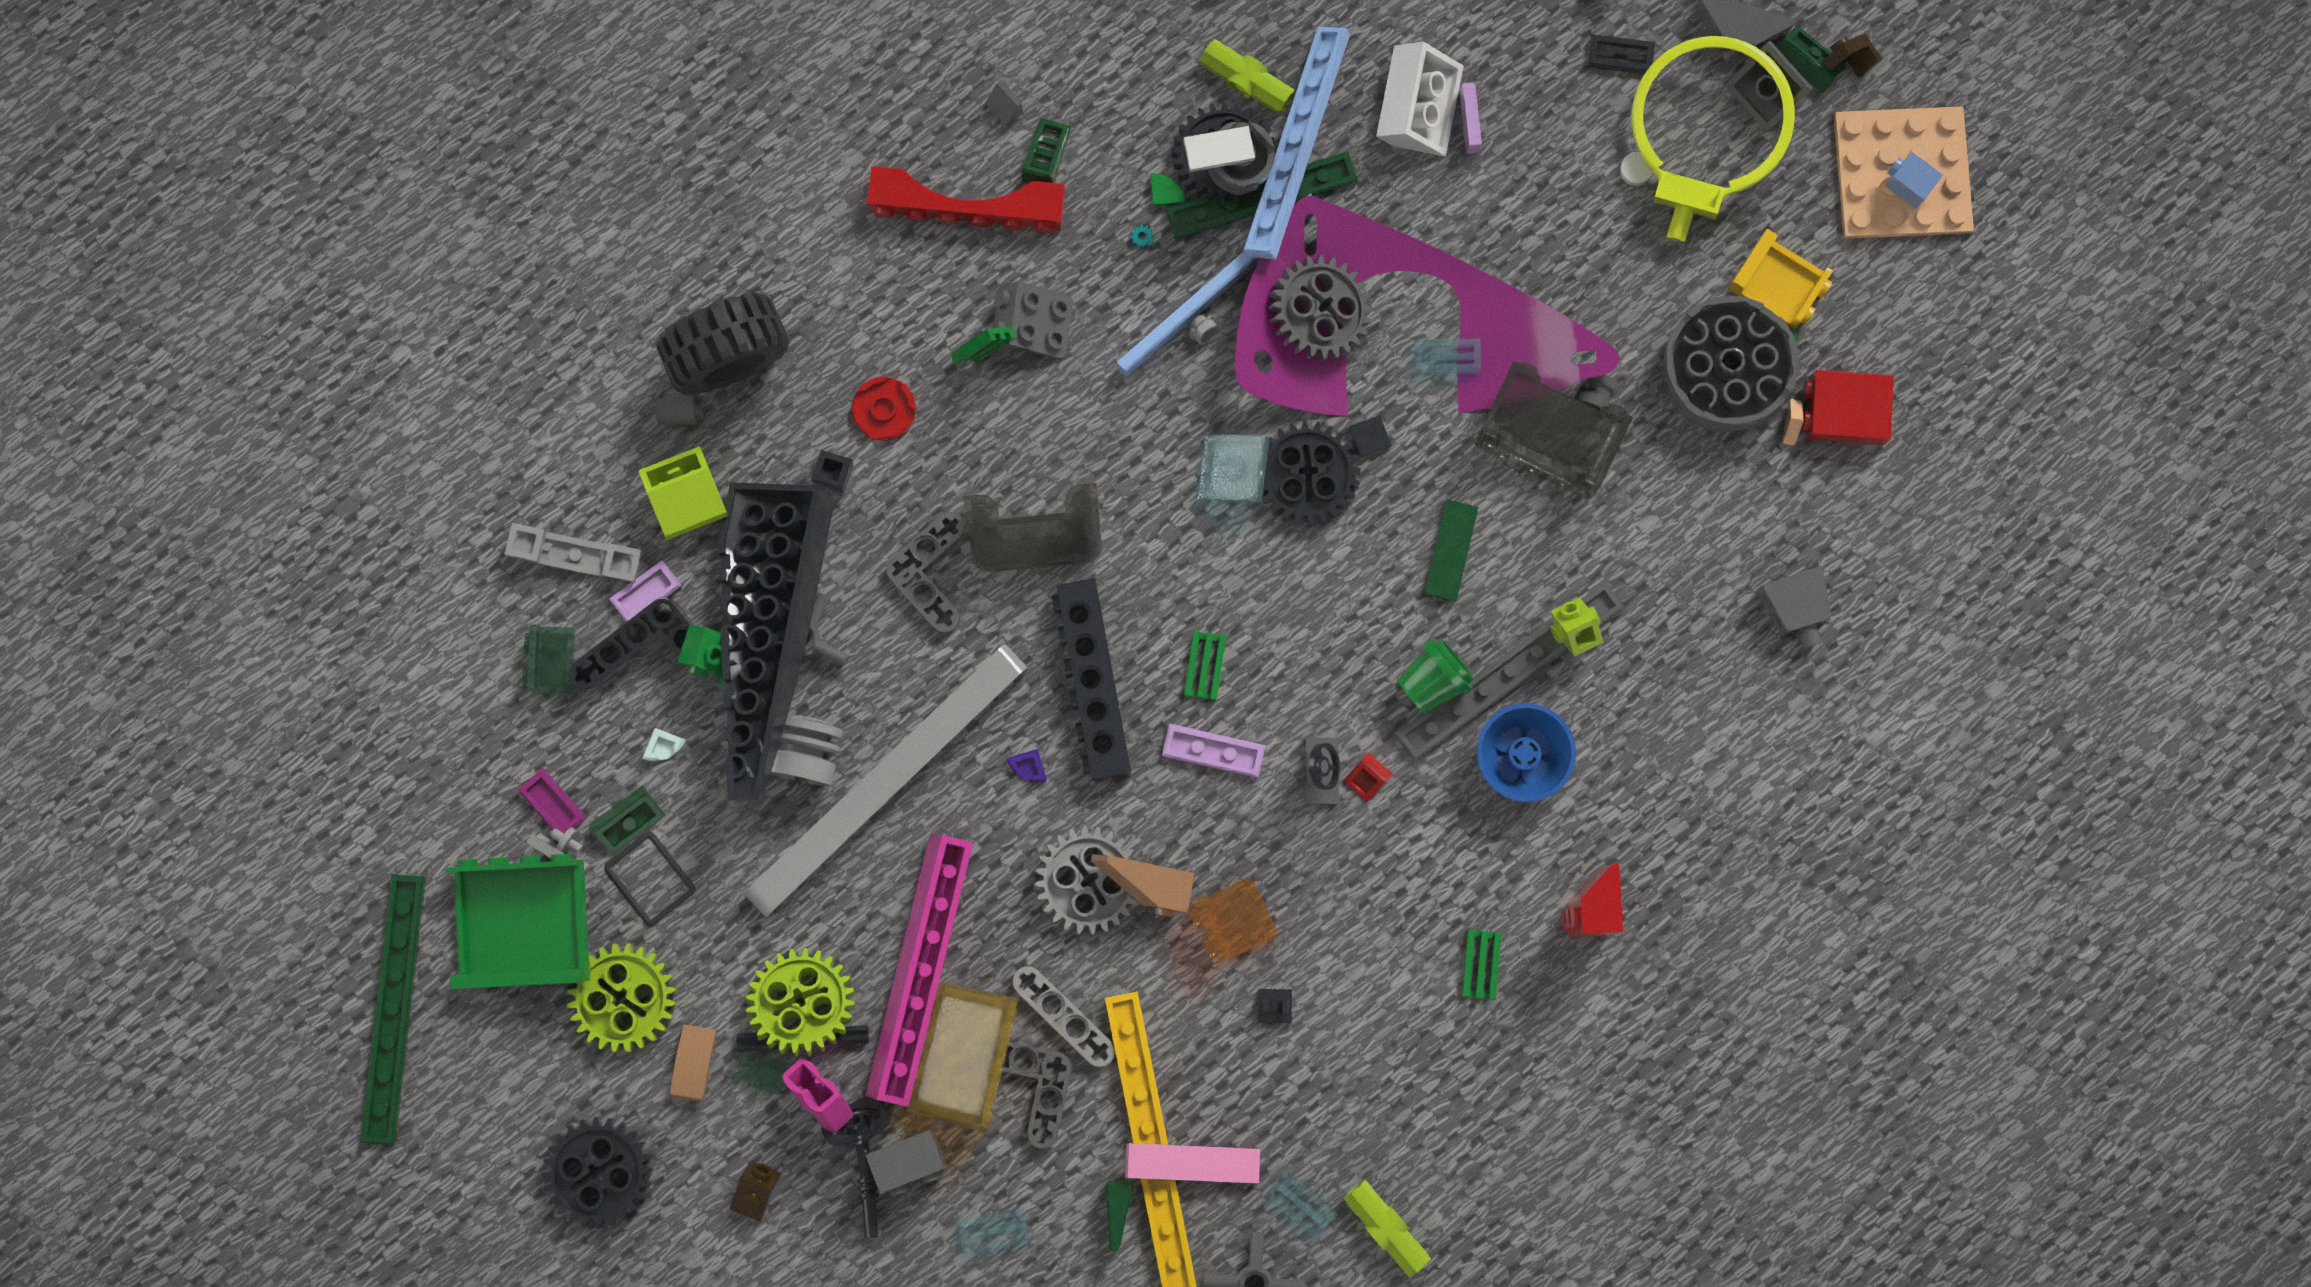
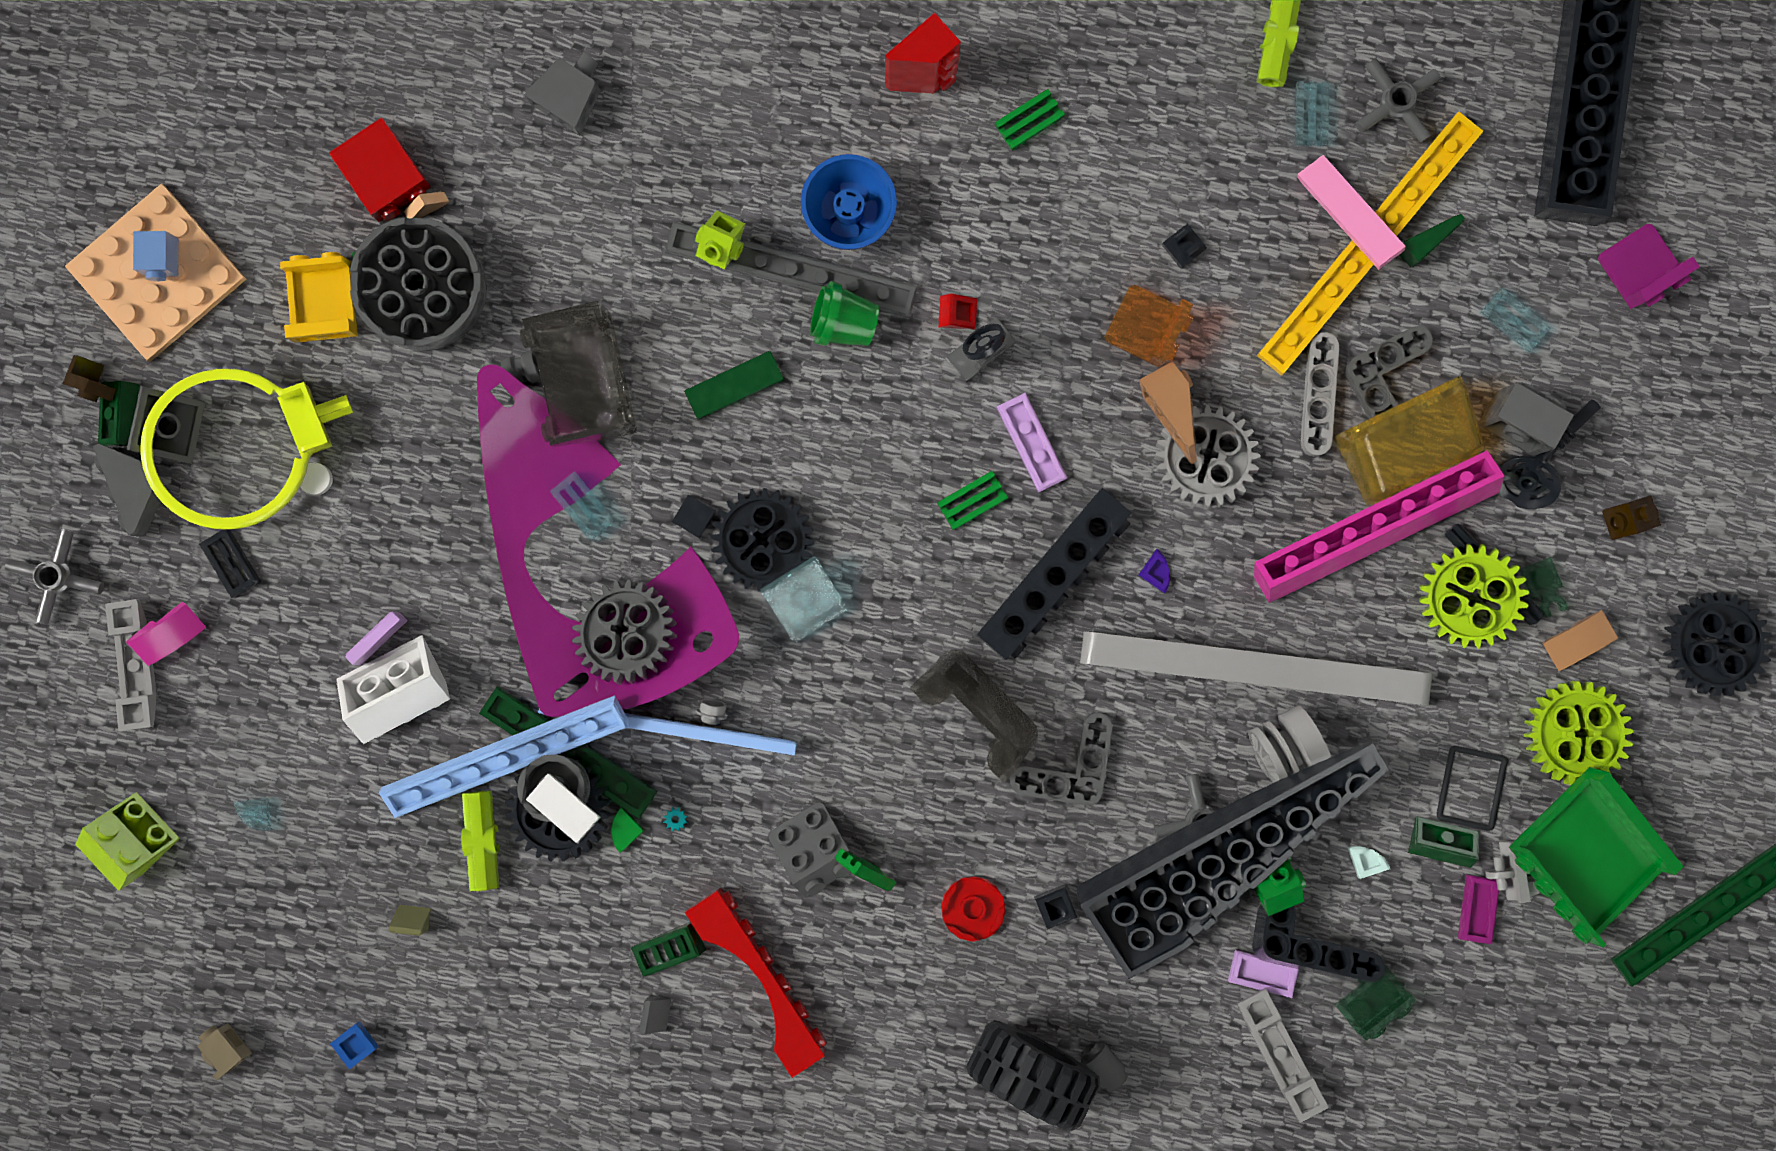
camera: 125 degrees left, 5 degrees up
(683, 493) = (1169, 1008): lime slope -> none
(817, 1095) = (1533, 524): dark pink brick -> none

